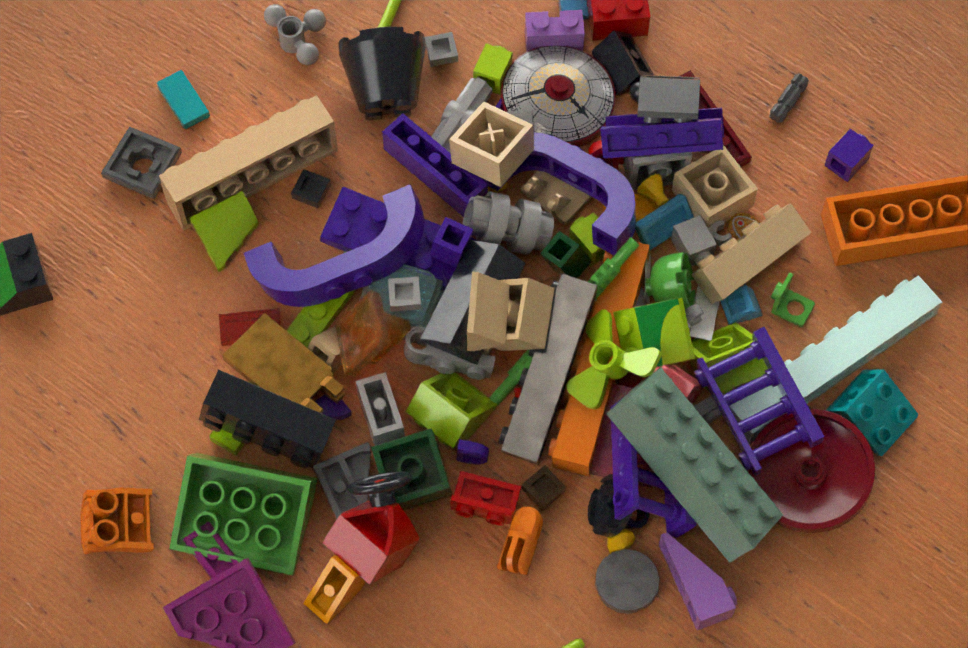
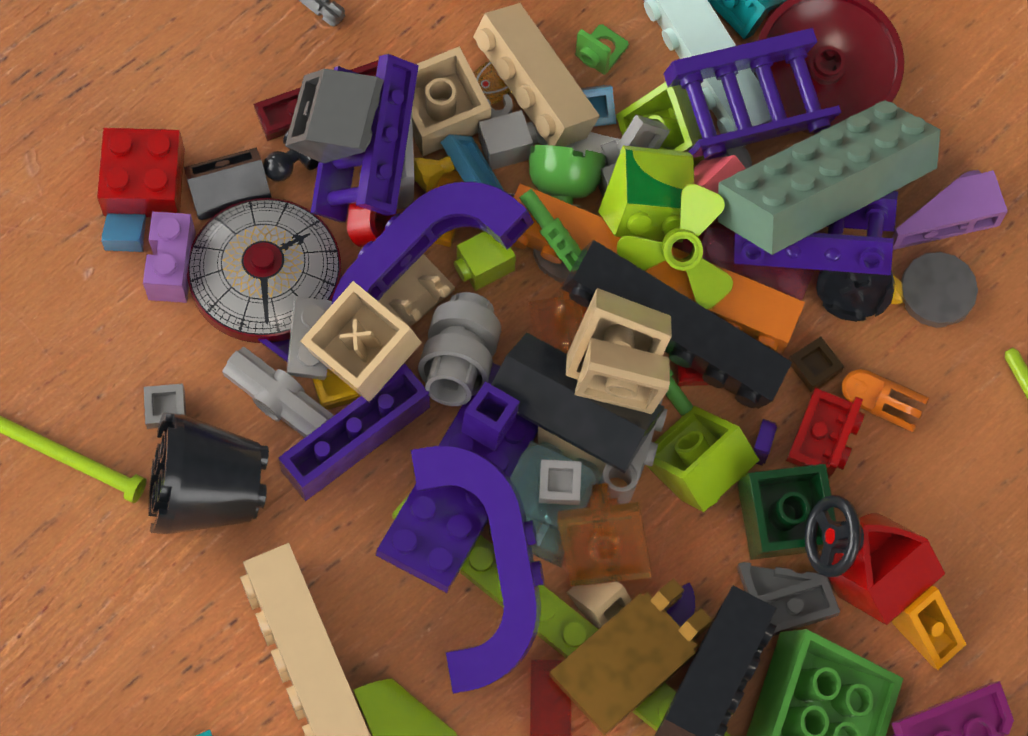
camera: 85 degrees left, 5 degrees up
(311, 188) = (356, 601): black plate -> none
(313, 20) = (87, 570): light grey piece -> none
(380, 409) = (701, 541): light grey brick -> none
(493, 66) = (208, 341): lime brick -> none
(566, 256) = (513, 288): dark green brick -> none
(707, 330) = (644, 133): none -> light grey plate

